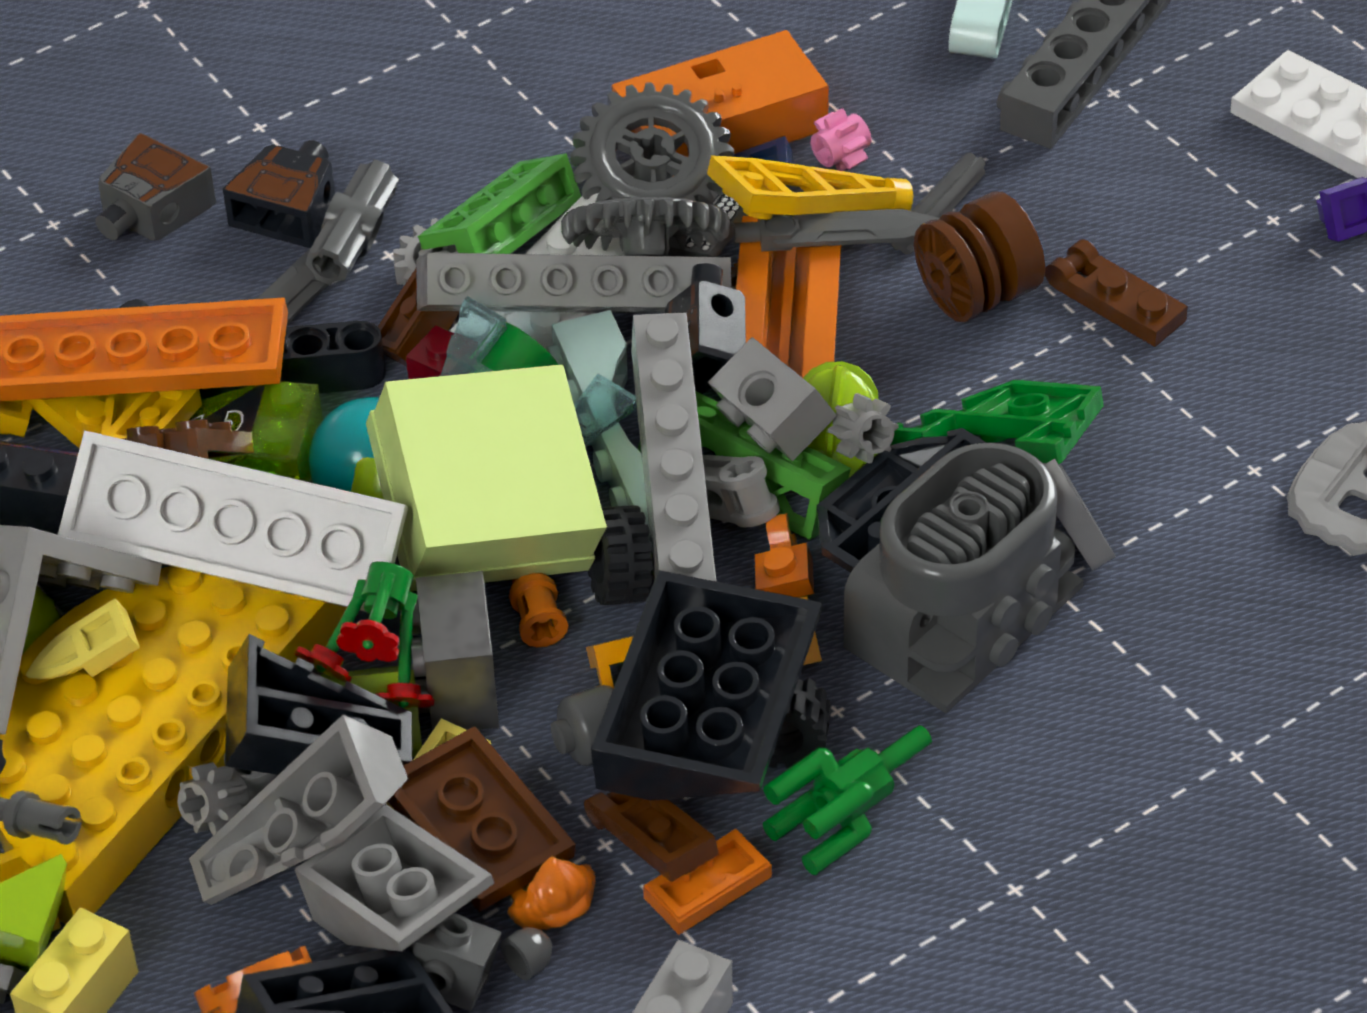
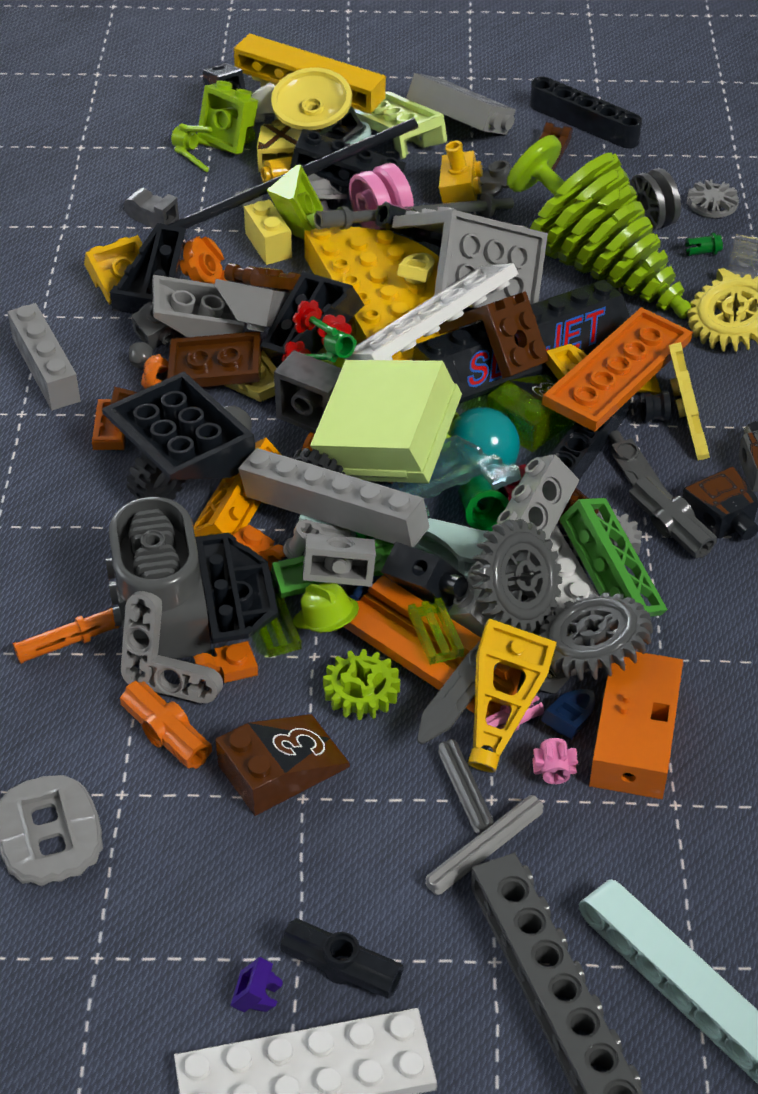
camera: 125 degrees right, 0 degrees up
(118, 286) = (687, 404): none -> light yellow wing
(242, 861) = (261, 276): none -> reddish brown plate
(768, 283) = (429, 610): none -> clear neon green tile
(839, 795) = (98, 482): green plant -> none
(863, 428) = (287, 591): light grey gear -> none
(902, 342) = (361, 684): none -> lime gear
(979, 256) = (378, 741): reddish brown wheel -> none
(996, 152) = (484, 845): none -> light grey axle
(1040, 415) = (238, 688): green wing -> none
(1078, 342) = (277, 759): none -> reddish brown slope
(1116, 293) = (309, 820): reddish brown plate -> none
(1116, 654) = (65, 635): none -> orange pin
(1137, 472) = (166, 724): none -> orange piece
(1248, 167) = (361, 968): none -> black piece

